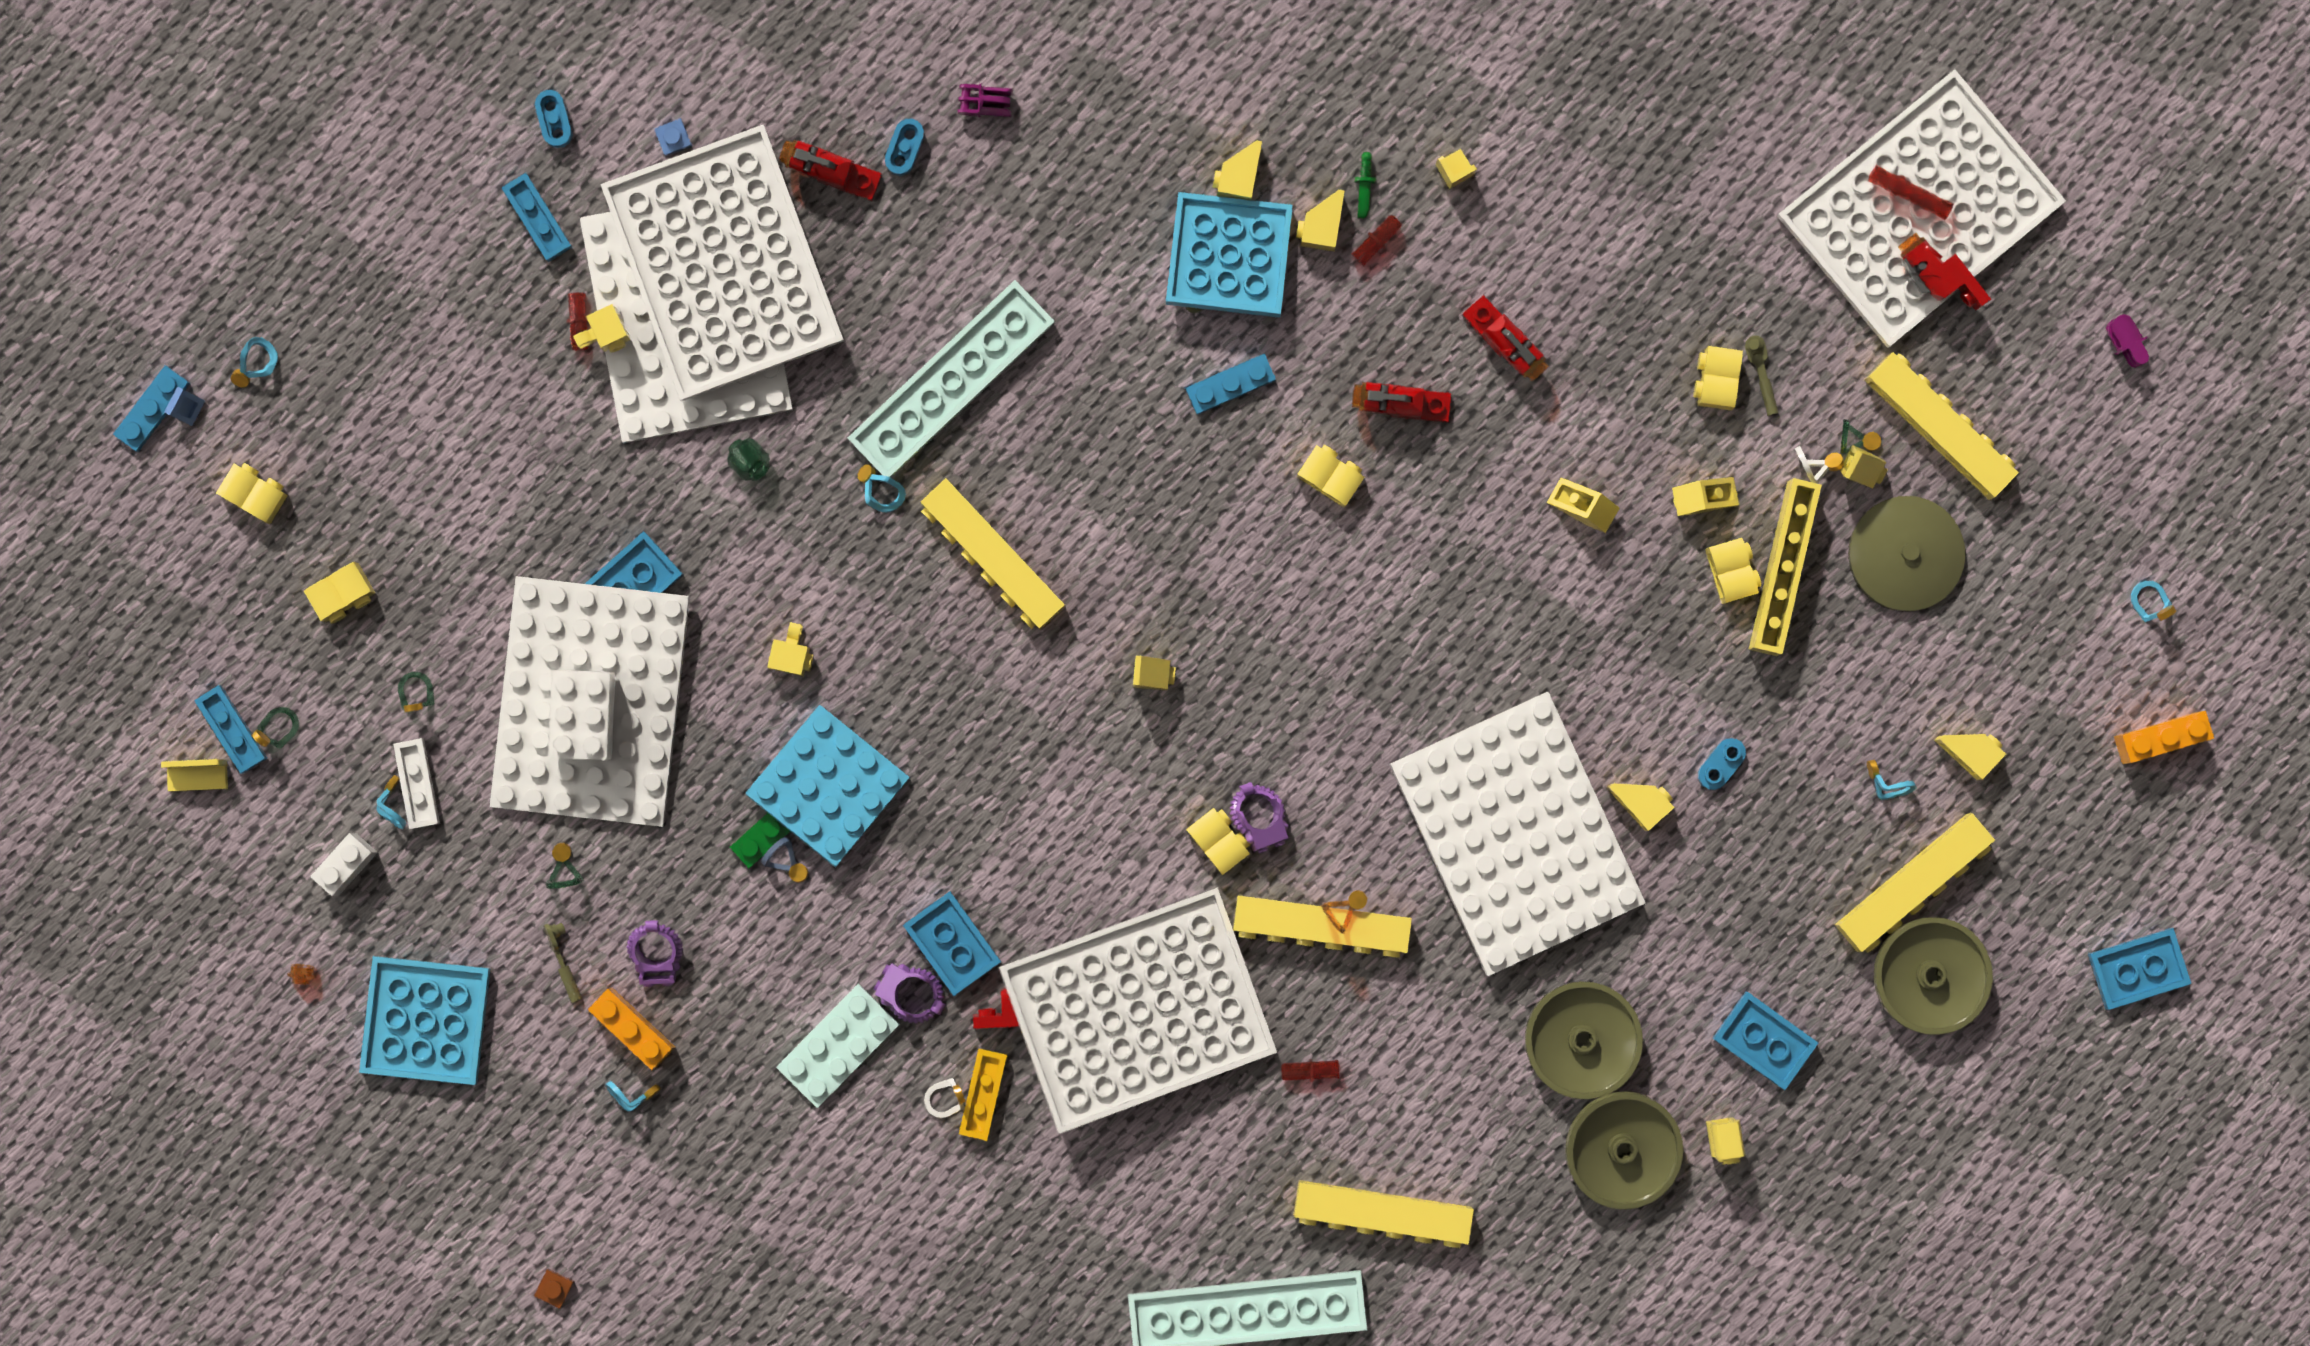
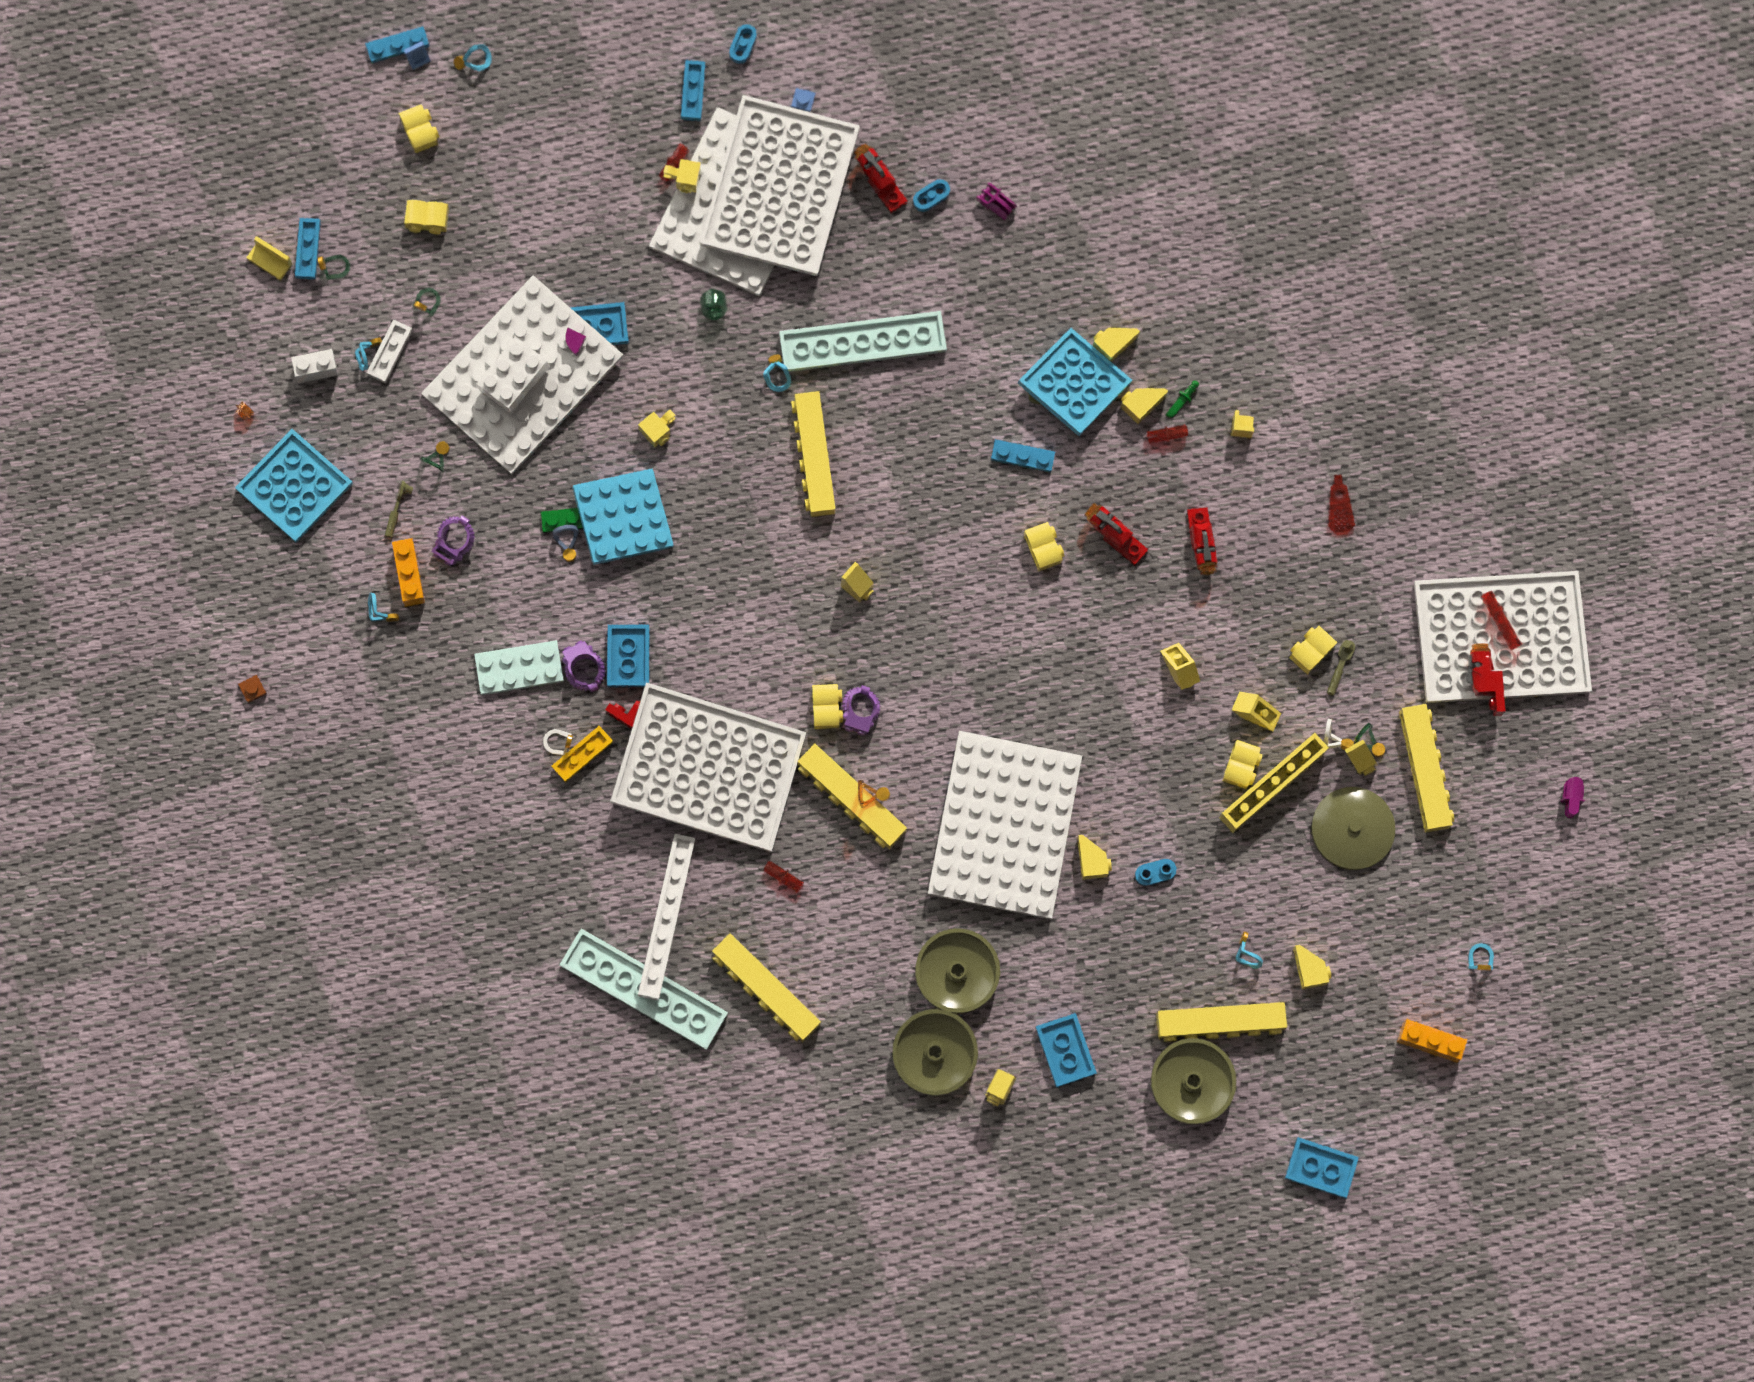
camera: 30 degrees right, 10 degrees down
(622, 622) = (574, 340): none -> magenta tile
(1214, 1214) = (666, 917): none -> white plate
(1630, 183) = (1340, 504): none -> clear red piece

